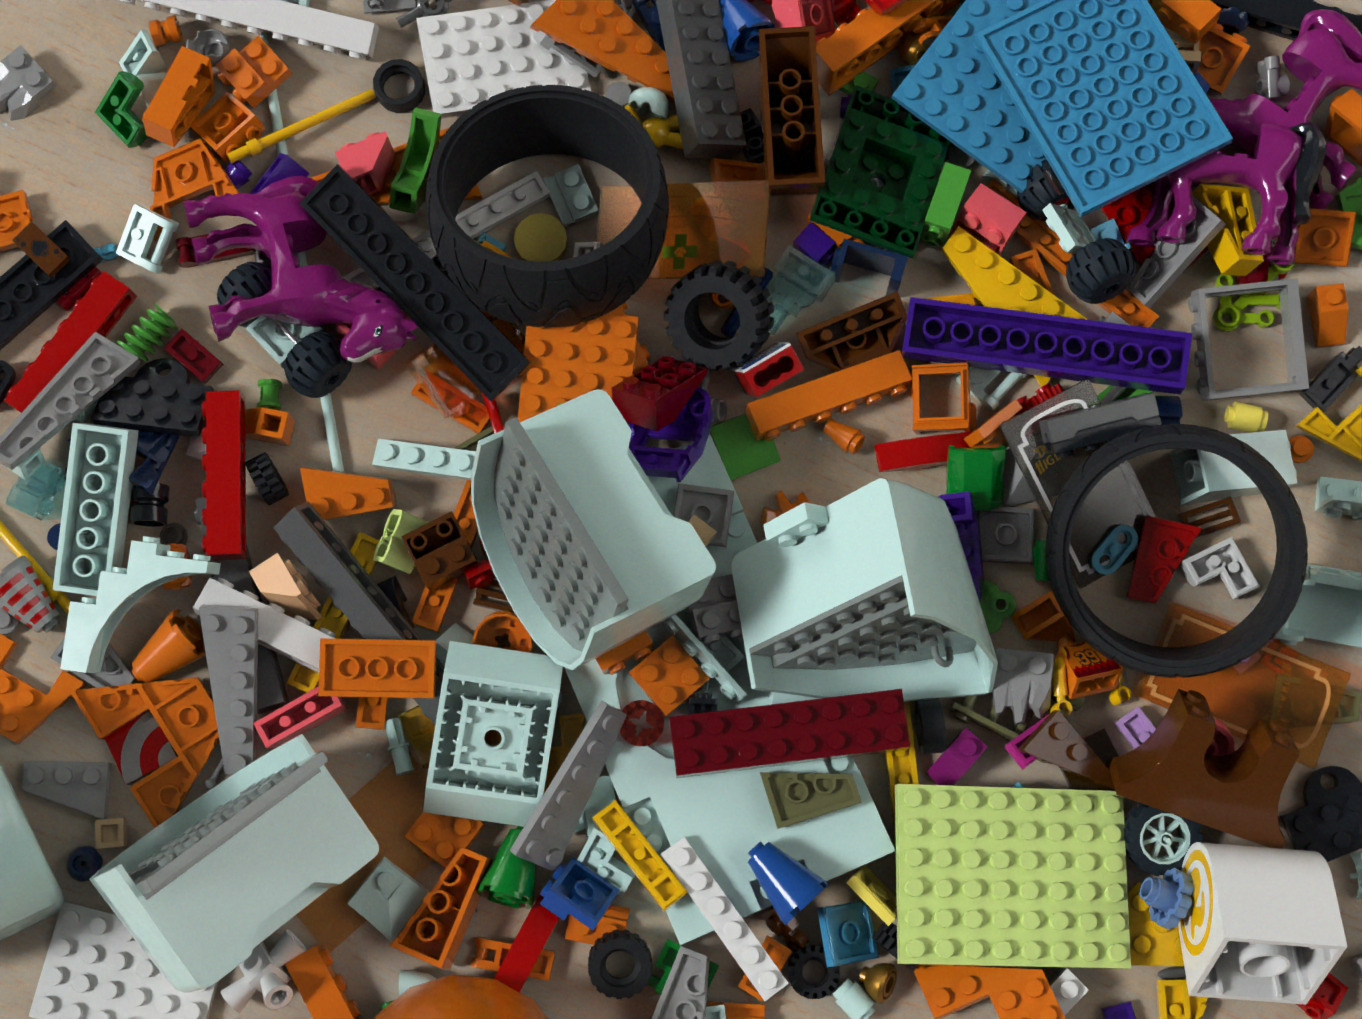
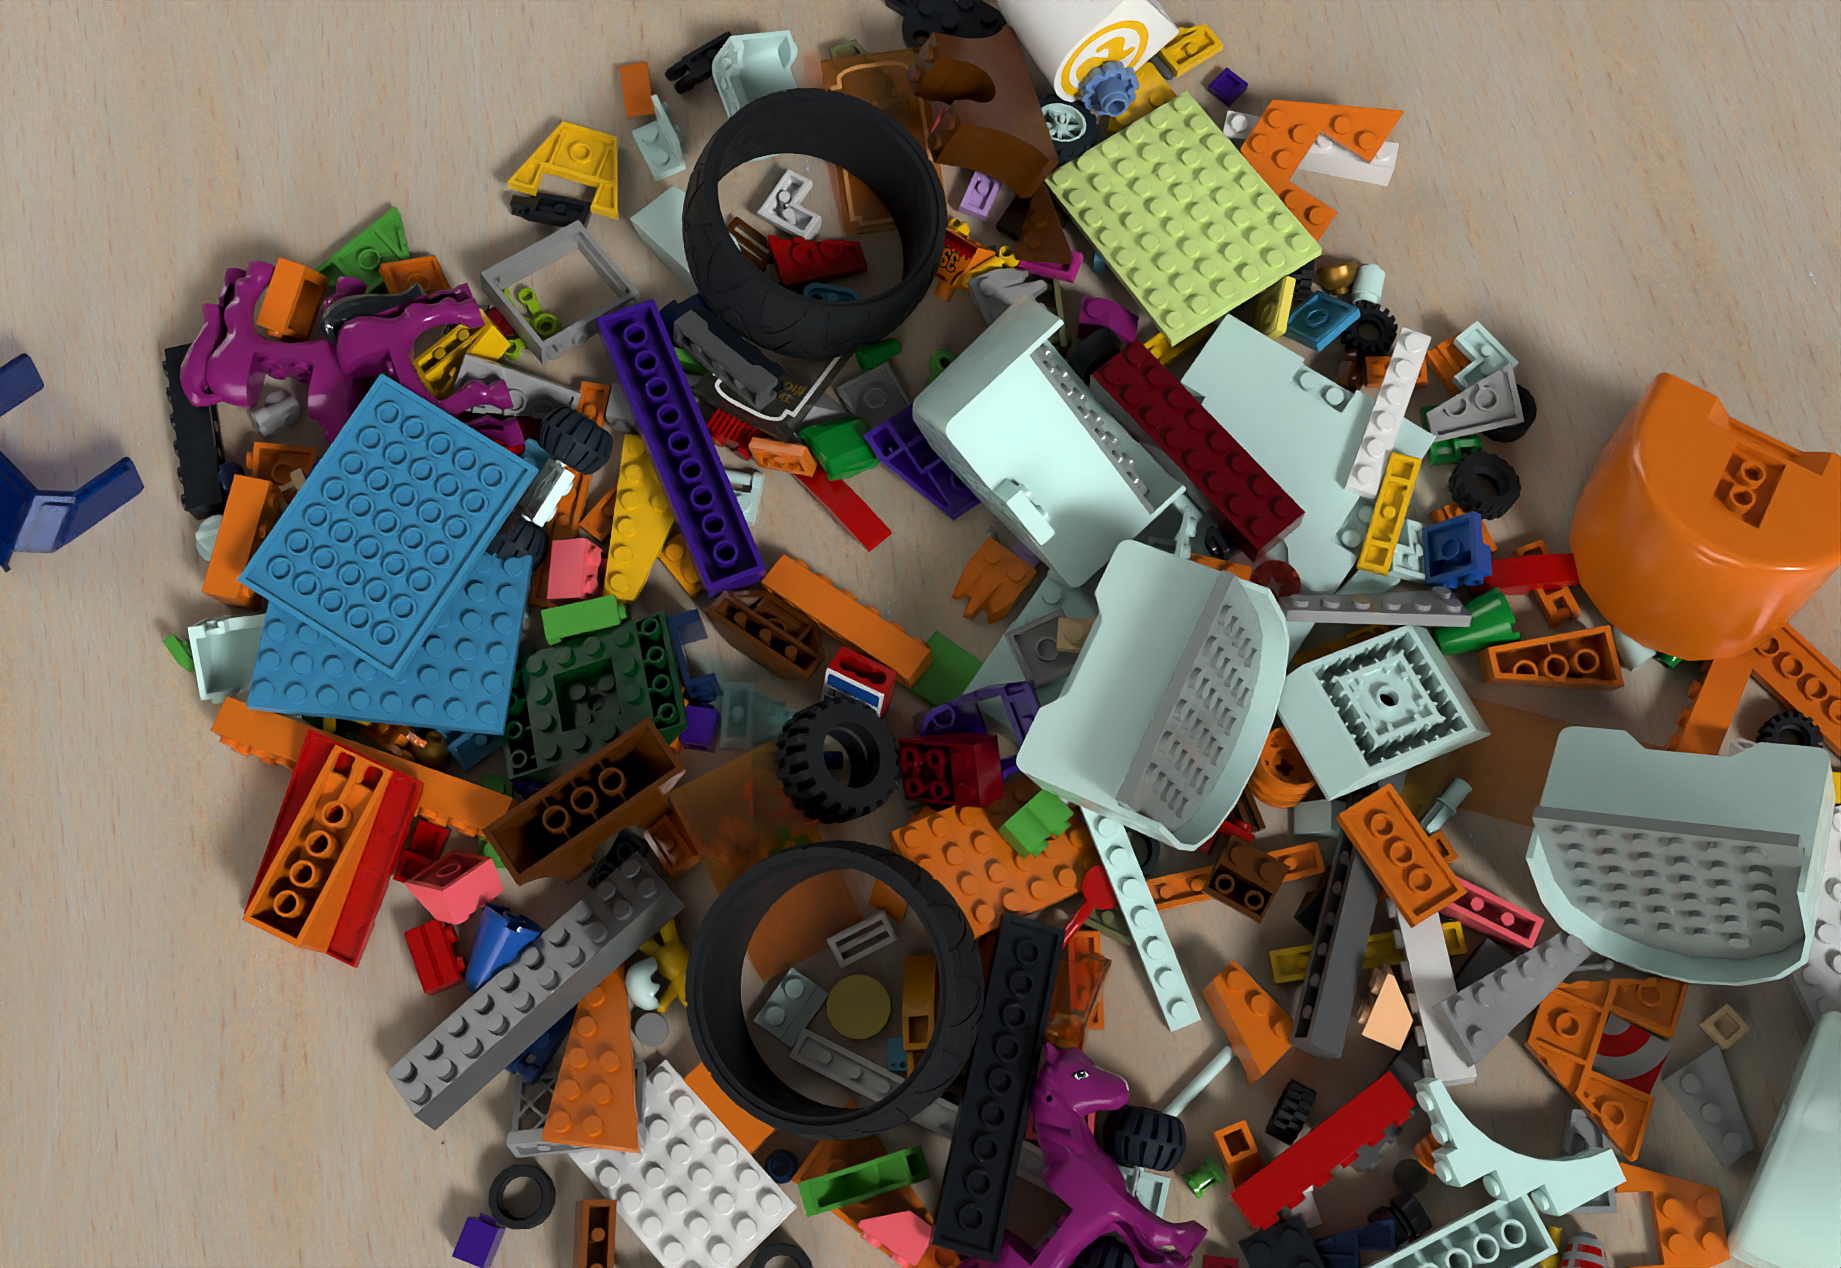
camera: 125 degrees left, 5 degrees down
(74, 863) = (1759, 1036): dark blue plate -> none
(170, 648) = (1518, 1090): orange cone -> none
(388, 898) = (1578, 710): light aqua plate -> none
(391, 548) = (1251, 940): yellowish green brick -> none
(443, 835) = (1499, 708): orange plate -> none
(784, 880) = (1323, 373): blue cone -> none
(807, 796) = (1235, 403): olive wing -> none
(845, 436) = (874, 586): orange cone -> none
(968, 417) = (811, 501): orange piece -> none
(1043, 620) = (931, 324): orange slope -> none
(1246, 417) = (636, 260): light yellow brick -> none
(1301, 449) = (635, 202): orange plate -> none
(1328, 314) = (492, 244): orange slope -> none

